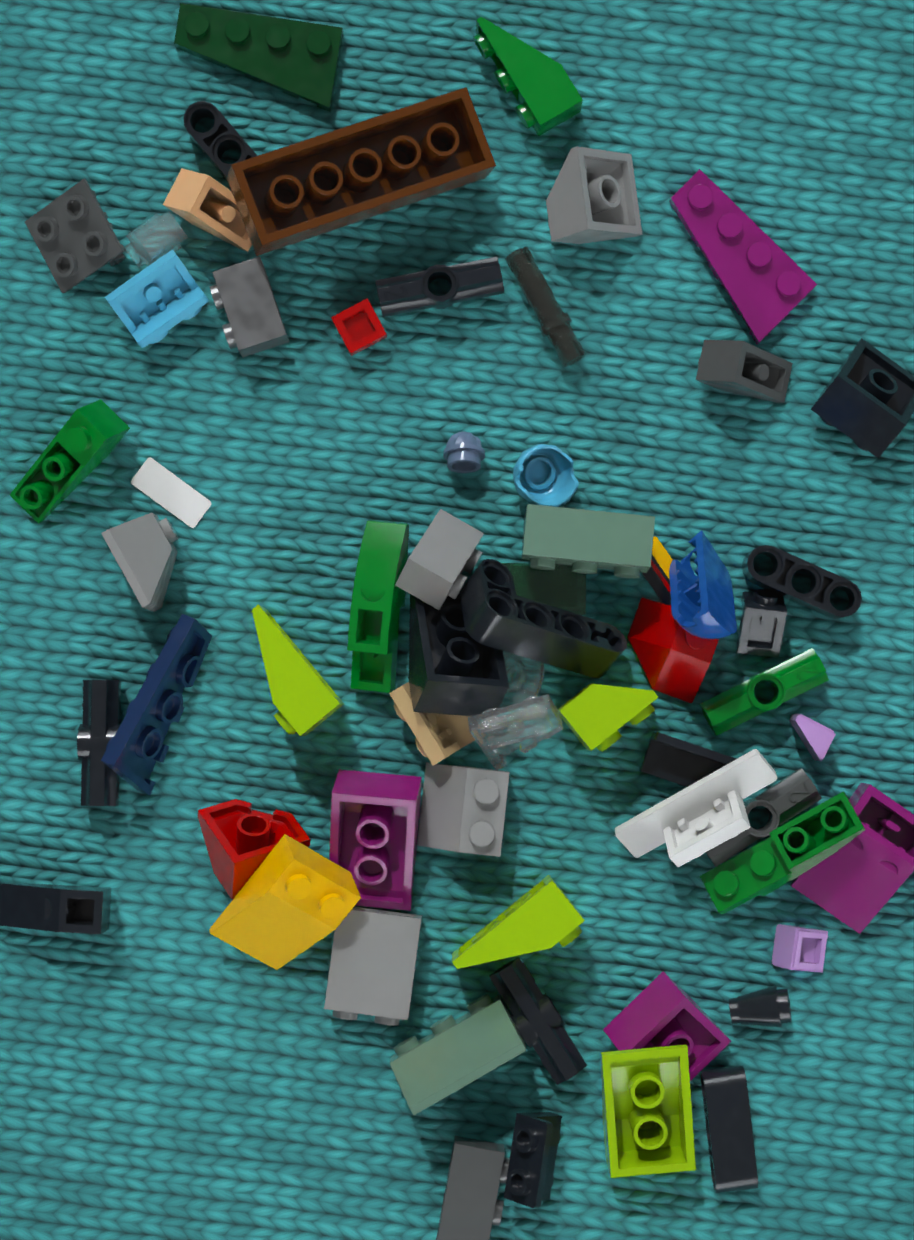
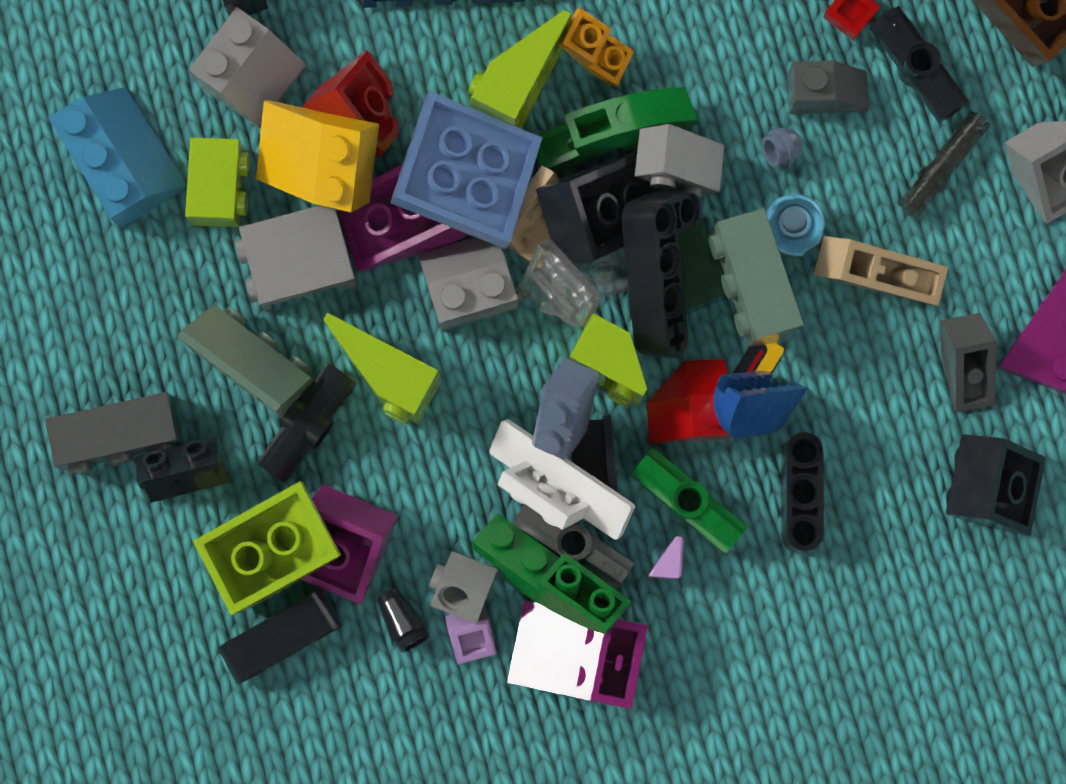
camera: 60 degrees right, 5 degrees down
(165, 934) = (246, 66): none -> light grey slope
(197, 1094) = (118, 154): none -> dark azure slope
(266, 1010) = (216, 182): none -> lime brick
(293, 589) = (595, 49): none -> light orange slope
(368, 769) = (466, 170): none -> medium blue plate
(424, 384) = (826, 88): none -> dark grey slope
(622, 414) = (880, 270): none -> tan slope
(636, 774) = (565, 408): none -> sand blue brick
(756, 939) = (462, 586): none -> light grey brick
(761, 623) = (748, 473): black bracket -> none

